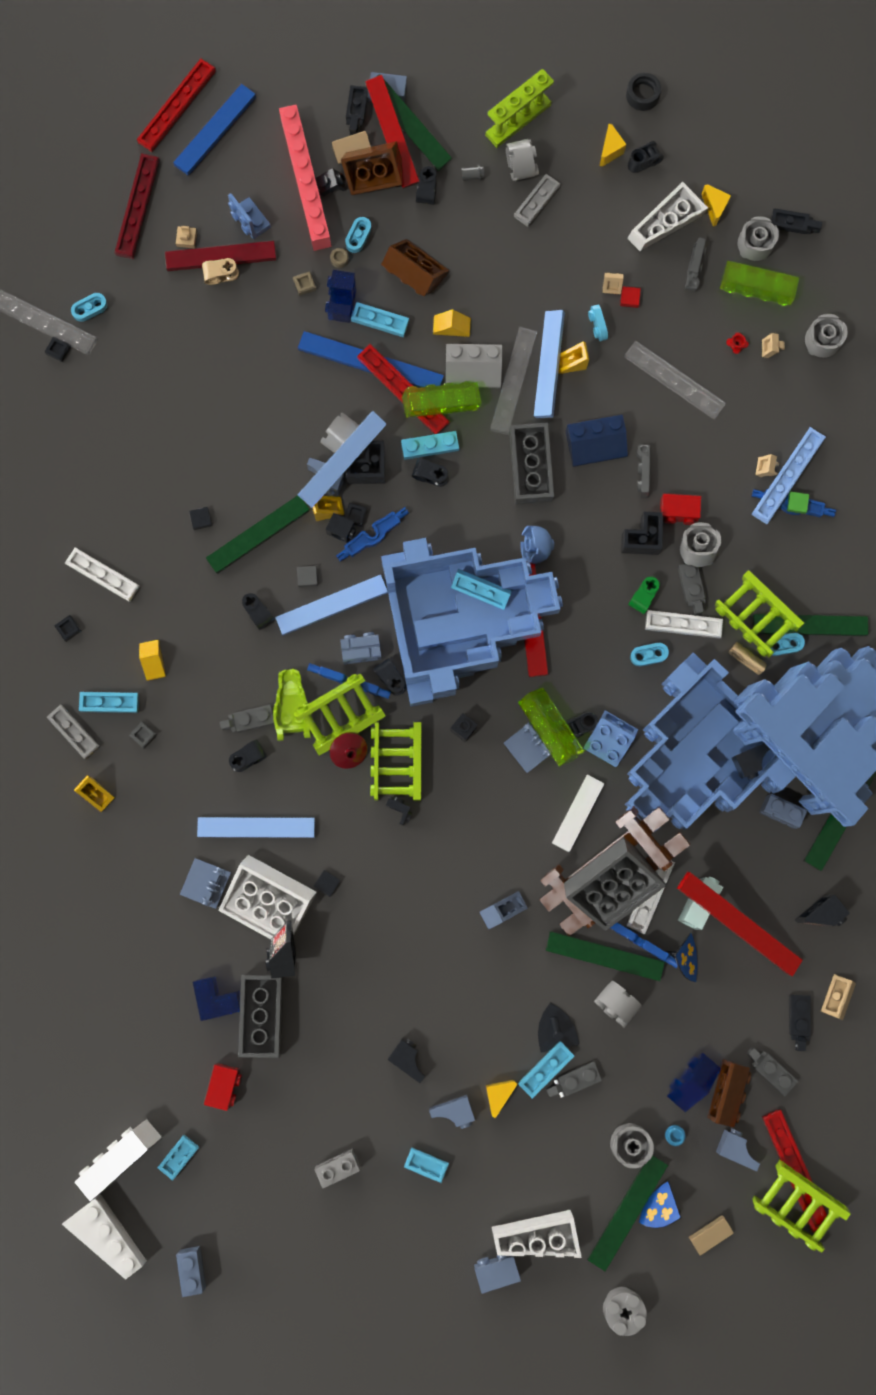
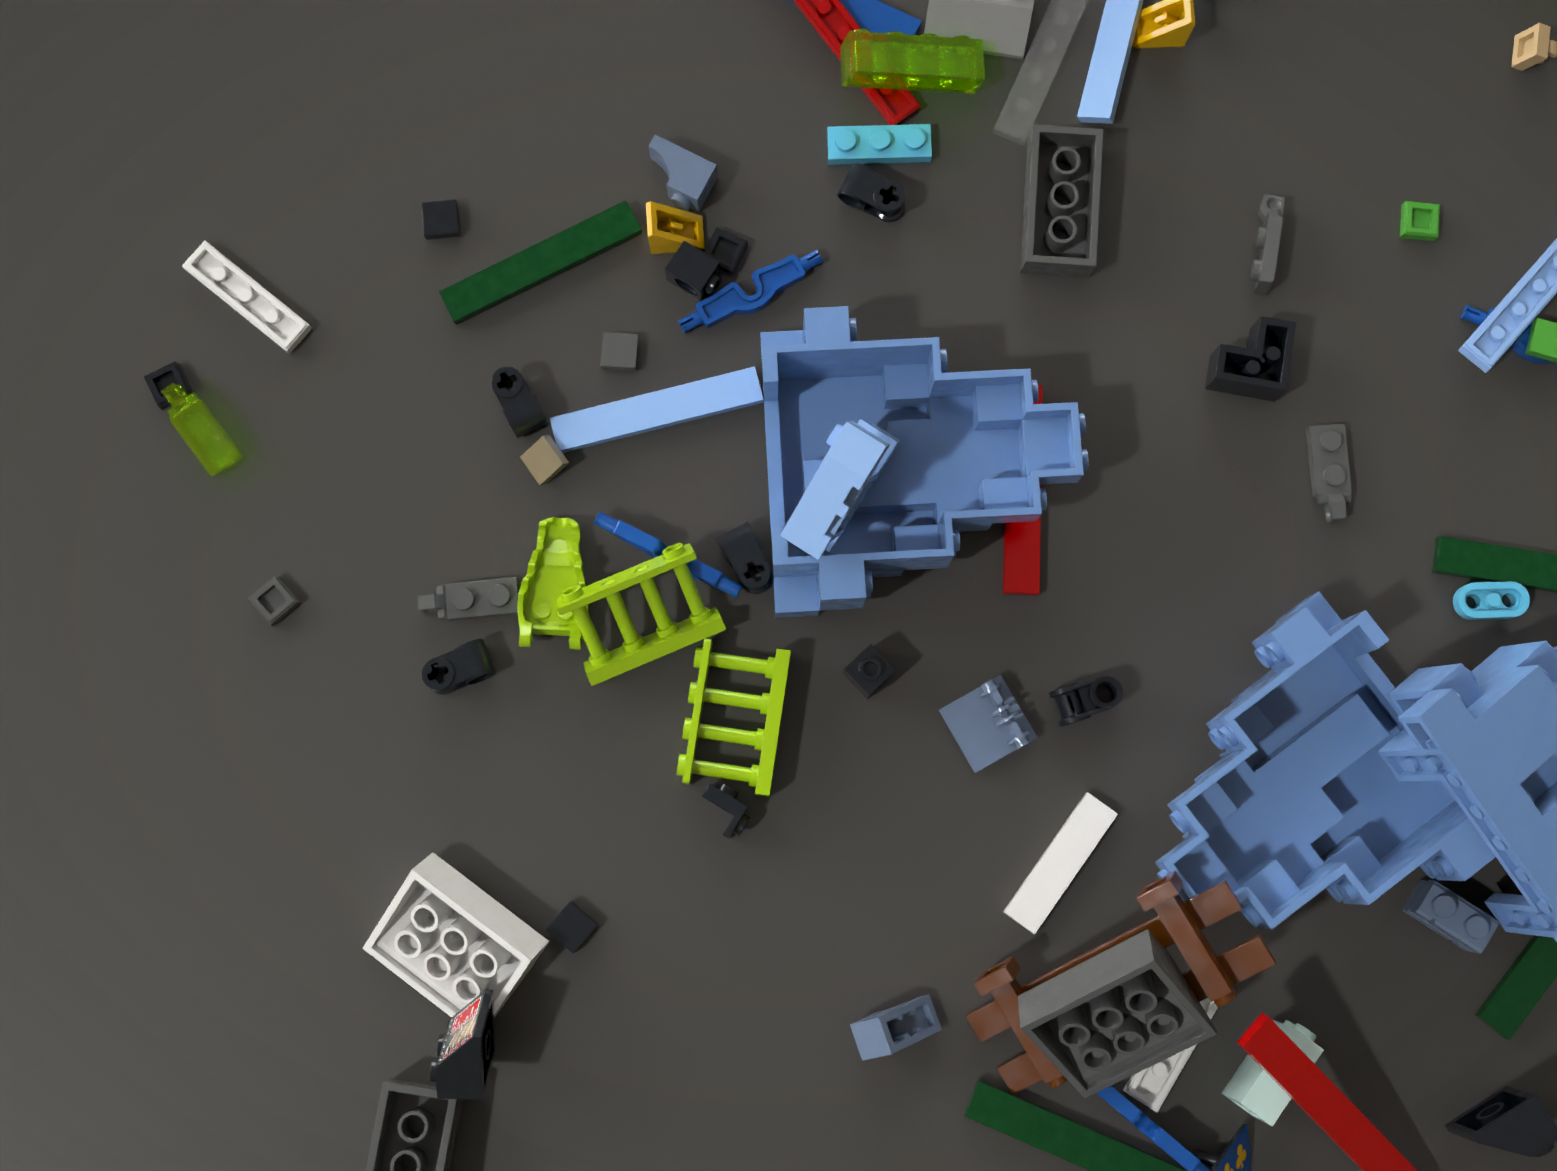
camera: 10 degrees right, 0 degrees up
(73, 732) = (148, 577): light grey tile -> none
(90, 650) = (201, 431): none -> clear neon green hinge
(94, 793) = (165, 695): yellow slope -> none
(109, 702) = (220, 531): medium azure plate -> none
(151, 660) = (311, 465): yellow slope -> none
(205, 883) = (345, 894): sand blue hinge -> none
(210, 1003) = (318, 1122): clear blue brick -> none
(256, 827) = (456, 802): light blue tile -> none
(275, 640) = (544, 459): none -> dark tan tile
(339, 432) = (718, 101): light grey brick -> none
(342, 459) = (713, 143): light blue tile -> none
(343, 745) = (647, 670): dark red dish -> none
(360, 648) = (698, 497): sand blue brick -> none
(371, 469) = (760, 171): black brick -> none
(434, 632) = (839, 485): none -> light blue wedge
(481, 589) = (937, 418): medium azure plate -> none
(536, 544) = (1052, 349): medium blue cylinder -> none
(551, 726) = (1032, 693): clear neon green brick -> none
(597, 440) = (1188, 176): dark blue slope -> none
(611, 738) = (1141, 732): medium blue bracket -> none
(643, 597) = (1237, 475): green piece -> none
(648, 654) = (1232, 584): medium azure plate -> none
(675, 380) = (1345, 87): clear tile -> none
(680, 508) = (1328, 321): red brick -> none
(683, 624) = (1305, 536): white tile -> none
(700, 545) = (1356, 393): light grey brick -> none
(723, 447) = (1419, 221): none -> bright green tile
(738, 337) = (1474, 27): red plate -> none
(747, 658) = (1417, 617): tan slope -> none
(750, 761) = (1406, 814): black arch -> none
(763, 596) = (1463, 503): lime fence -> none
(766, 466) = (1497, 265): tan tile -> none

